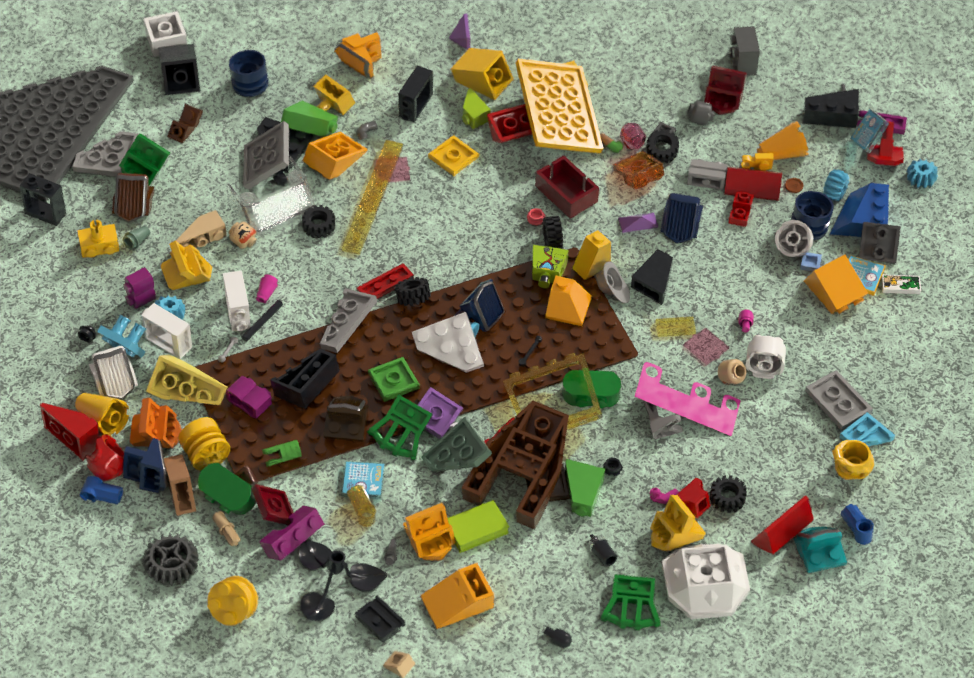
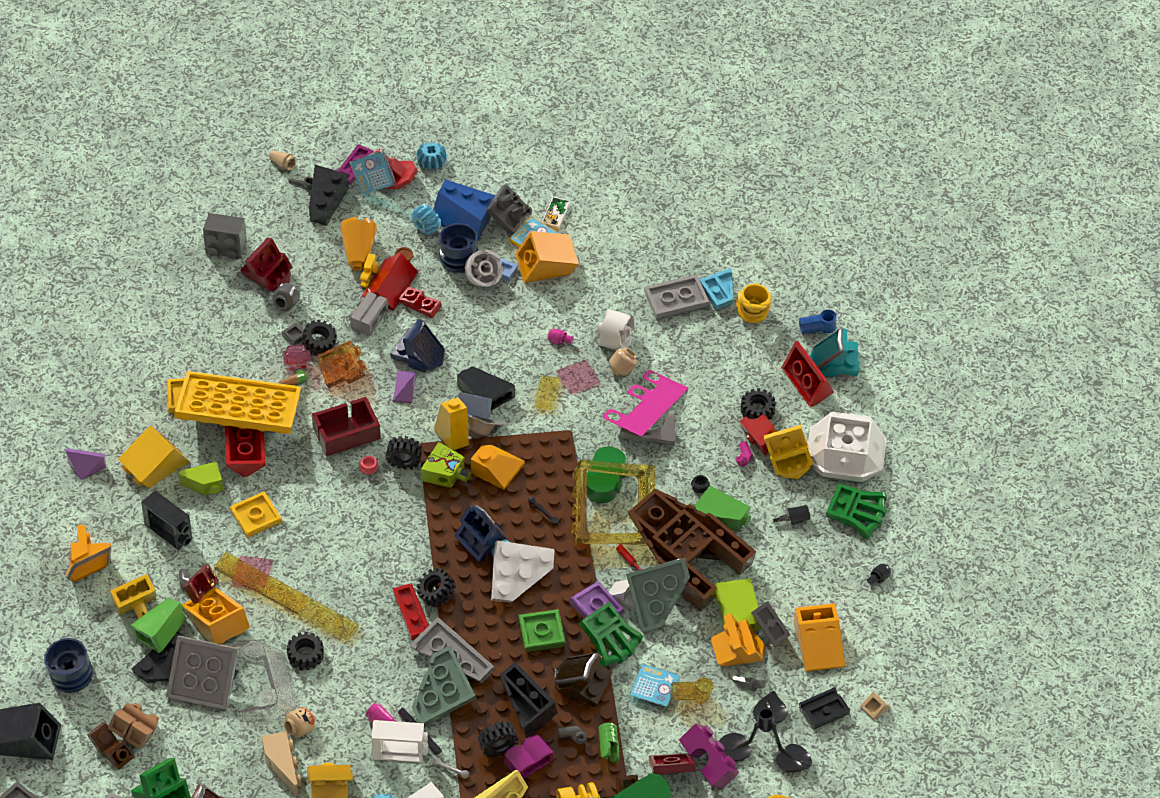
camera: 75 degrees left, 0 degrees up
(203, 130) = (134, 724): none -> medium nougat hips
(256, 366) = (497, 738): none -> black tyre
(287, 427) = (574, 733): none -> dark grey arm
(306, 320) = (442, 688): none -> sand green plate
(362, 134) = (200, 583): none -> dark red slope
(457, 550) = (770, 623): none -> dark grey hinge
(629, 270) = (476, 405): none -> sand blue tile
(861, 73) = (283, 160): none -> tan cone

